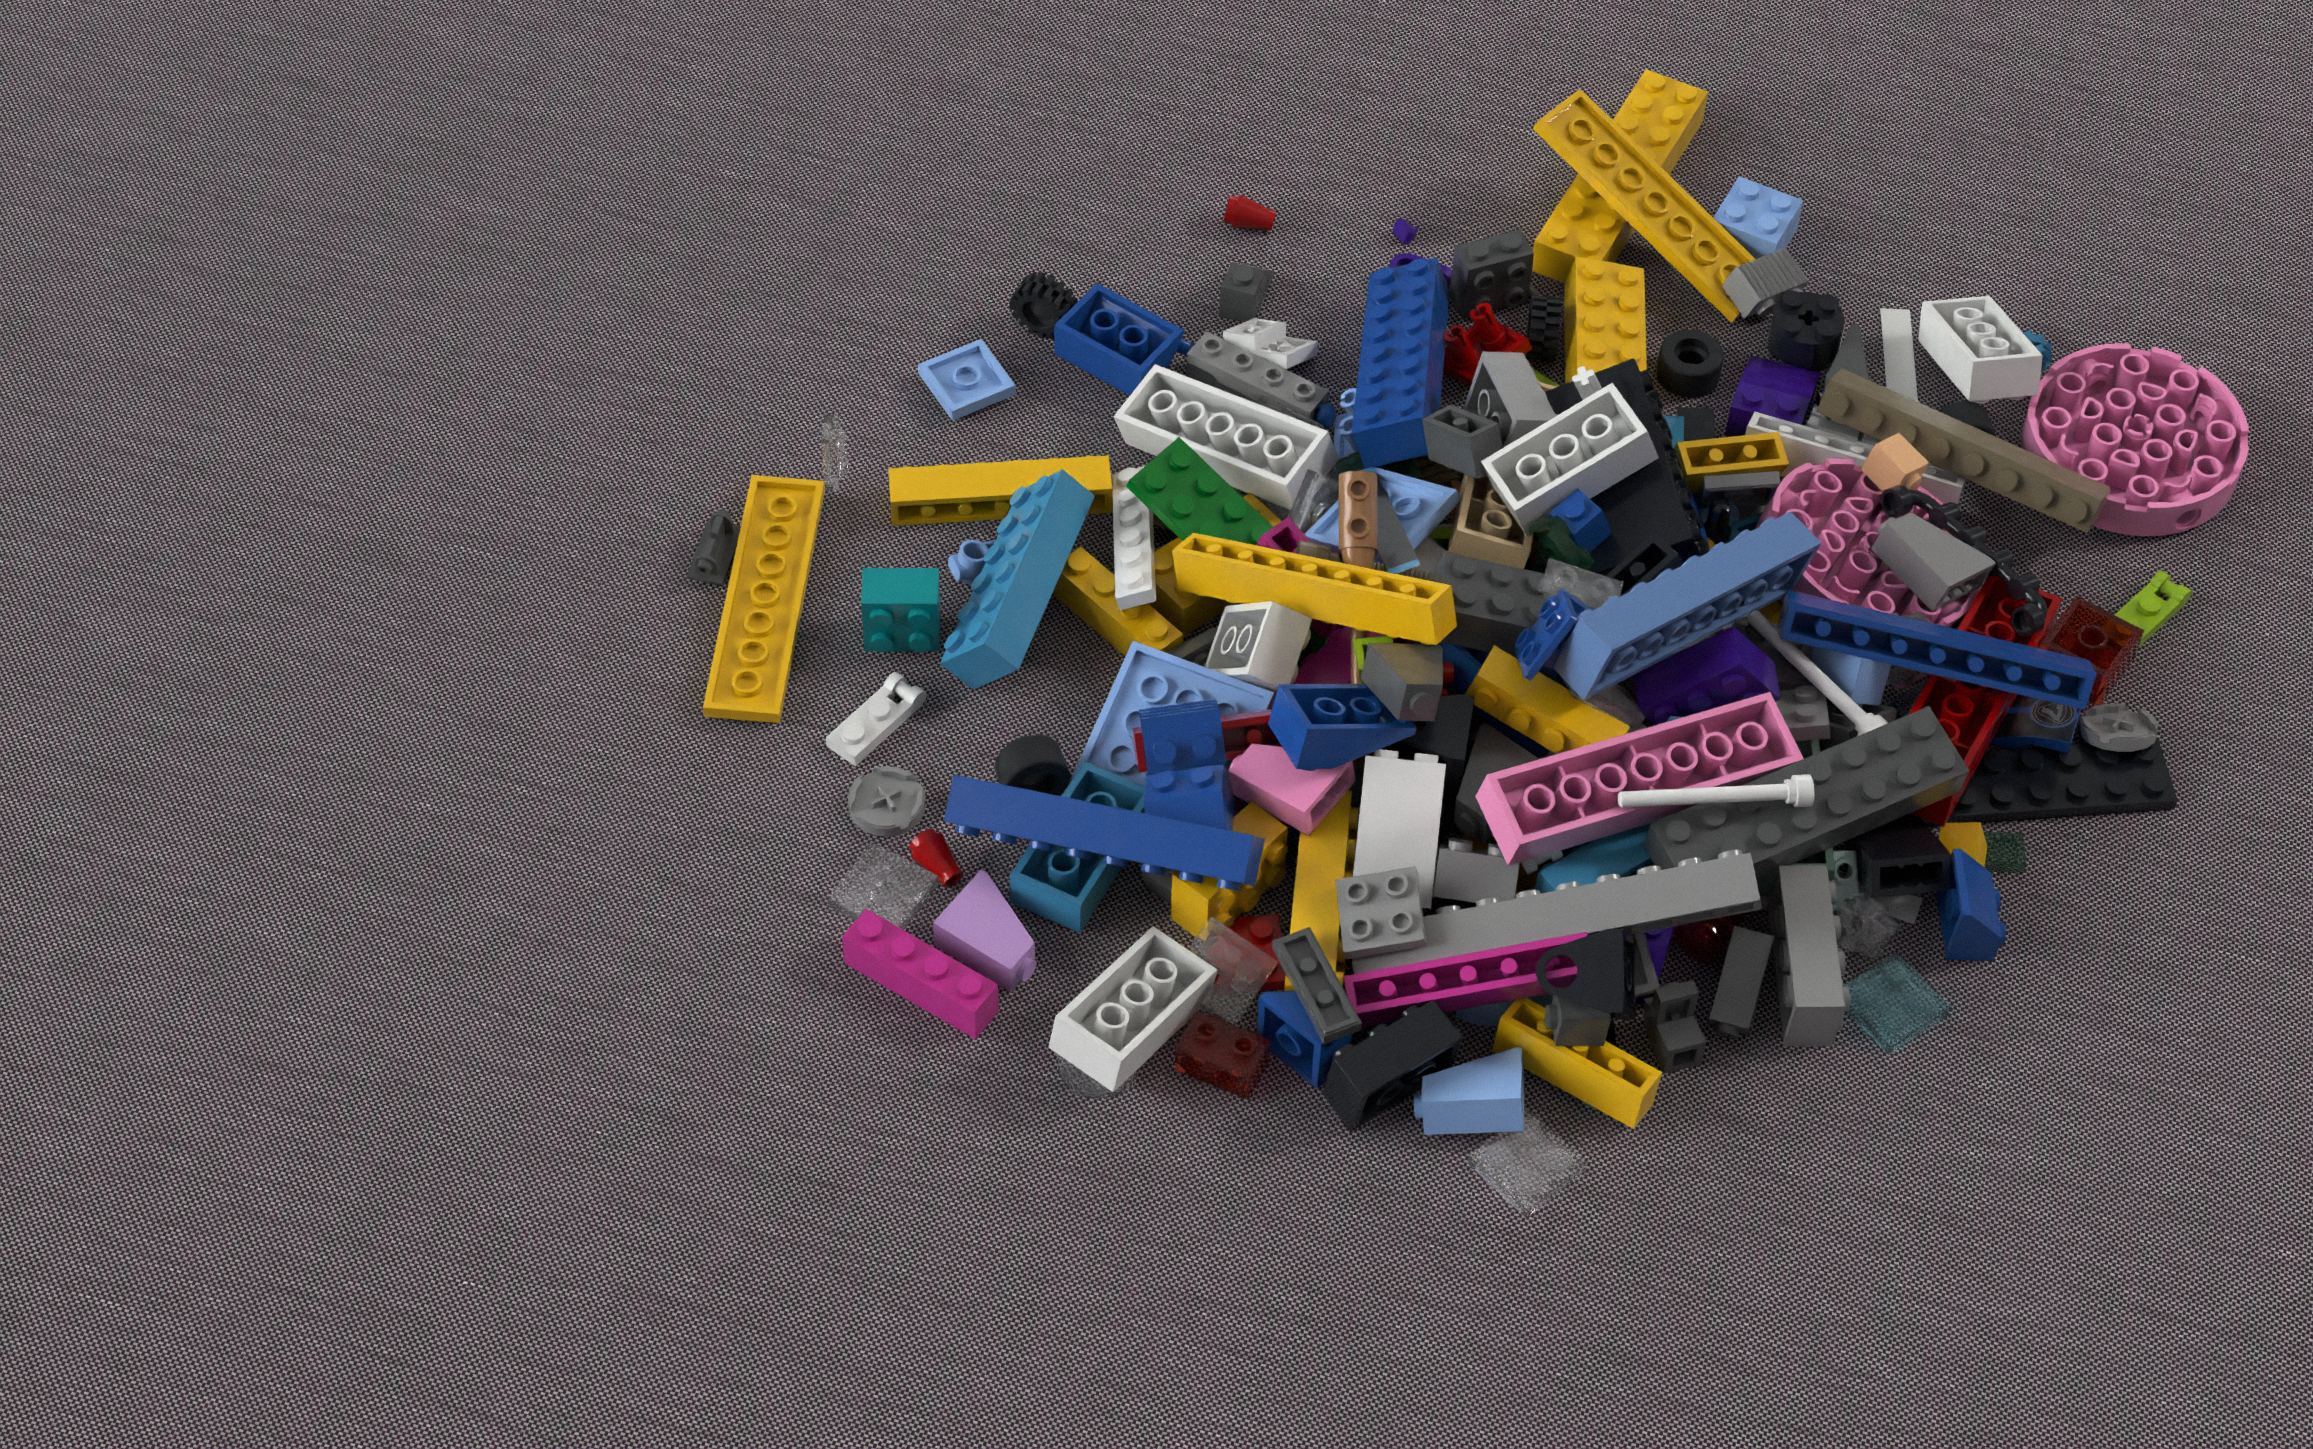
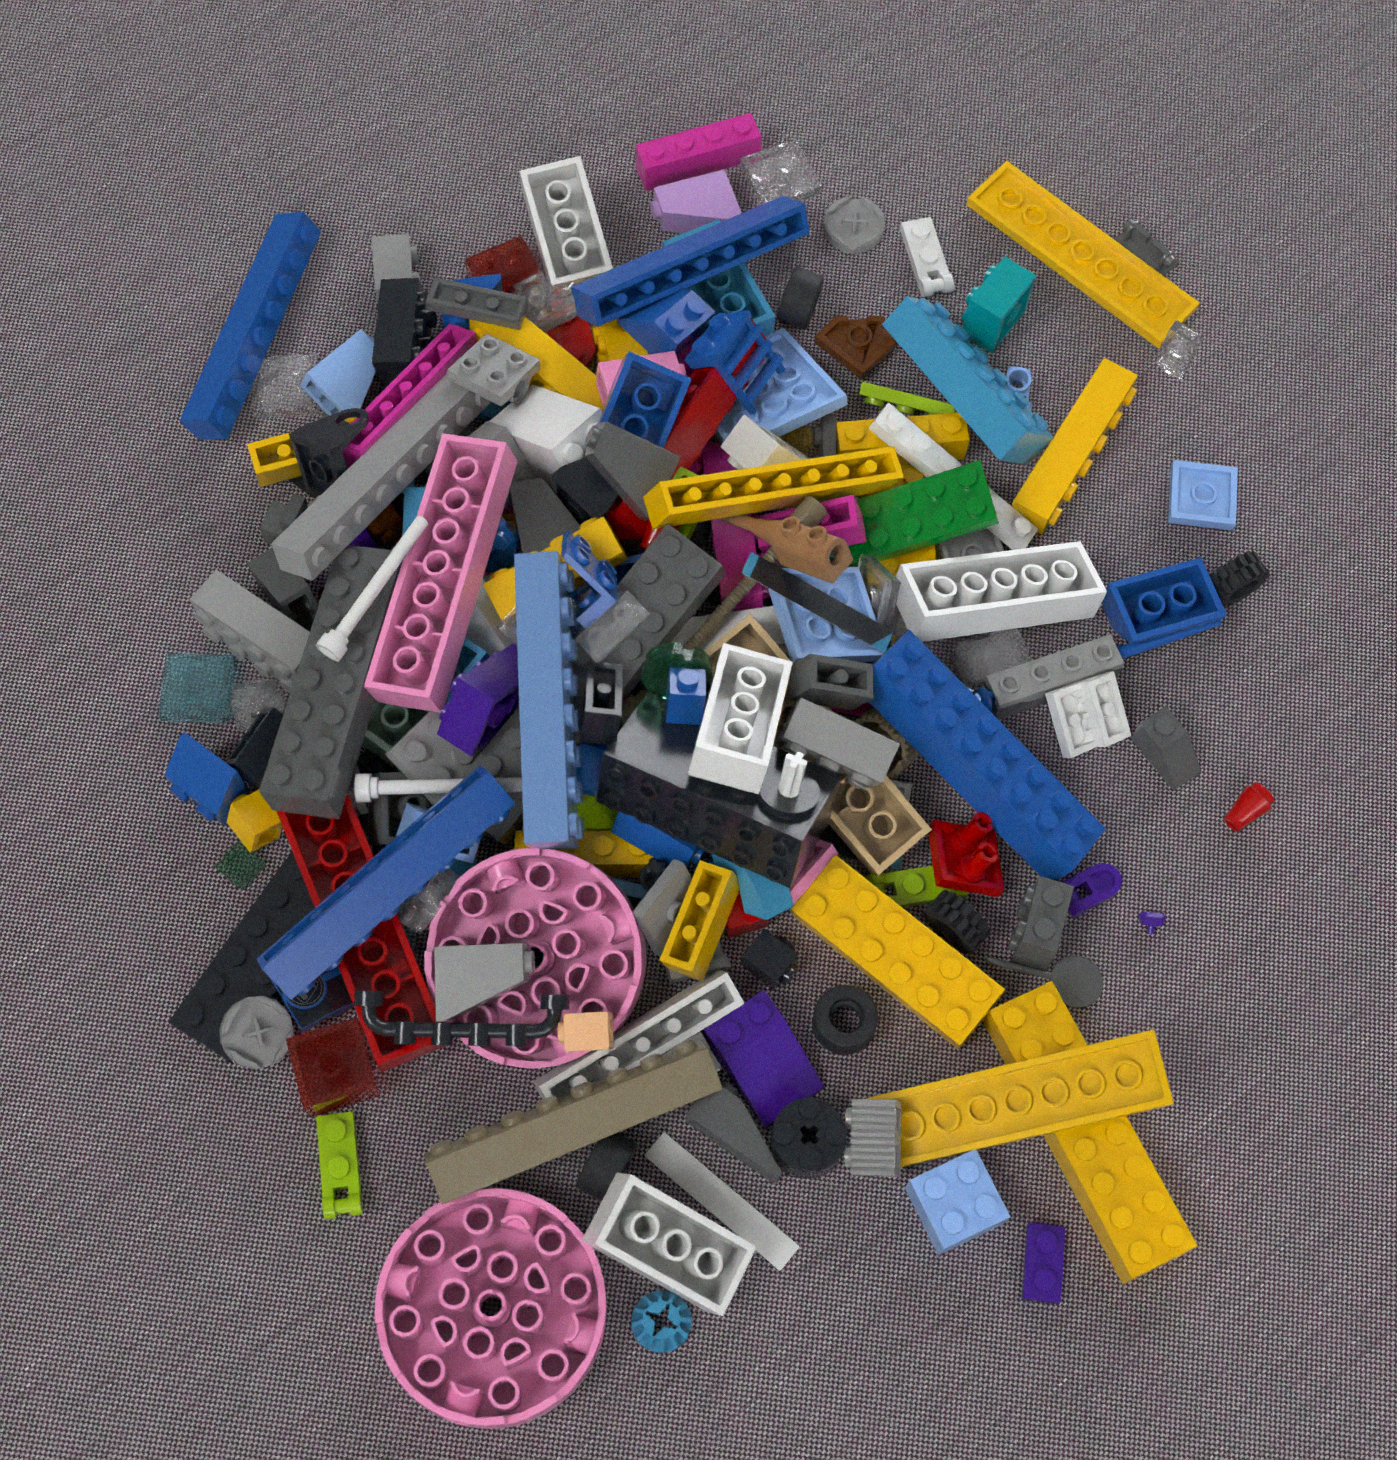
camera: 125 degrees right, 15 degrees up
(1029, 707) = (856, 342): none -> reddish brown plate
(1069, 640) = (905, 402): none -> lime plate
(1310, 1151) = (393, 258): none -> light grey brick
(1497, 1225) = (250, 326): none -> blue brick
(1744, 161) = (1043, 1263): none -> dark purple plate

